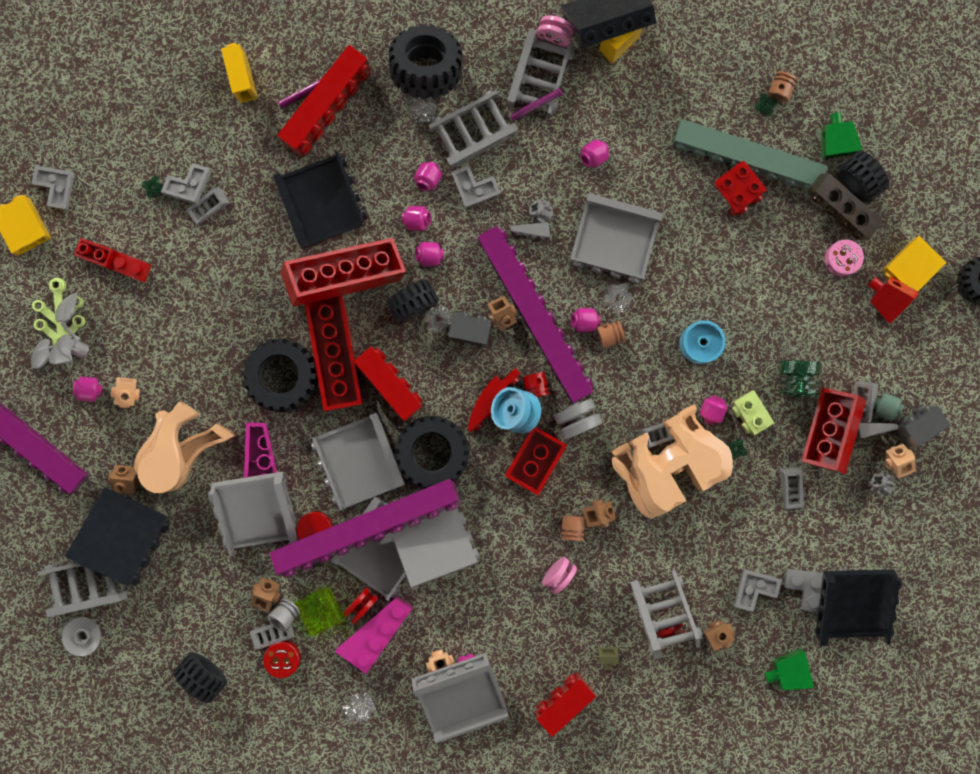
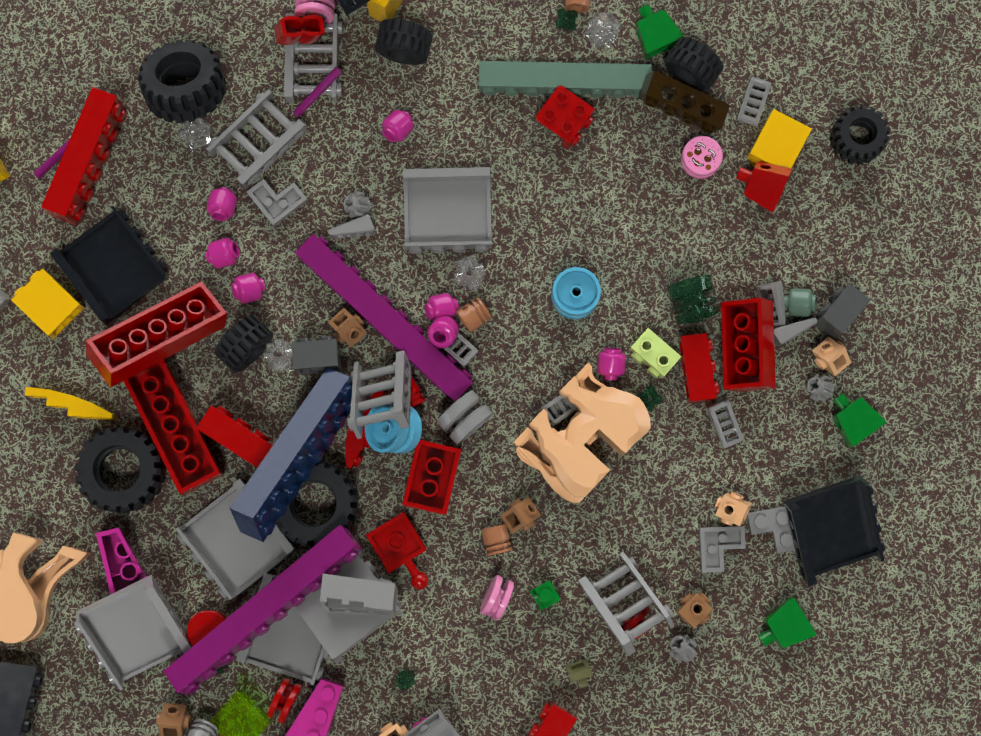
camera: 20 degrees left, 5 degrees down
(258, 216) = (47, 303): none -> yellow brick
(259, 311) = (76, 407): none -> yellow slope
(428, 409) = (293, 456): none -> dark blue brick
(447, 542) = (358, 596): none -> light grey wedge
(463, 618) = (404, 679): none -> clear green plate
(491, 506) = (397, 545): none -> red plate
(530, 388) = (400, 397): none -> light grey fence
(538, 47) = (297, 29): none -> red brick
(581, 341) = (443, 332): none -> dark pink head
(589, 371) = (468, 357): none -> light grey slope
(599, 585) = (545, 595): none -> green brick
(622, 83) = (403, 41): none -> black tyre
(699, 663) = (682, 648): none -> light grey gear
(781, 557) = (740, 509): none -> light nougat brick
(785, 436) = (698, 368): none -> red brick
(794, 123) = (603, 29): none -> clear brick
(903, 213) = (760, 84): none -> light grey slope
(903, 520) = (856, 420): none -> green torso

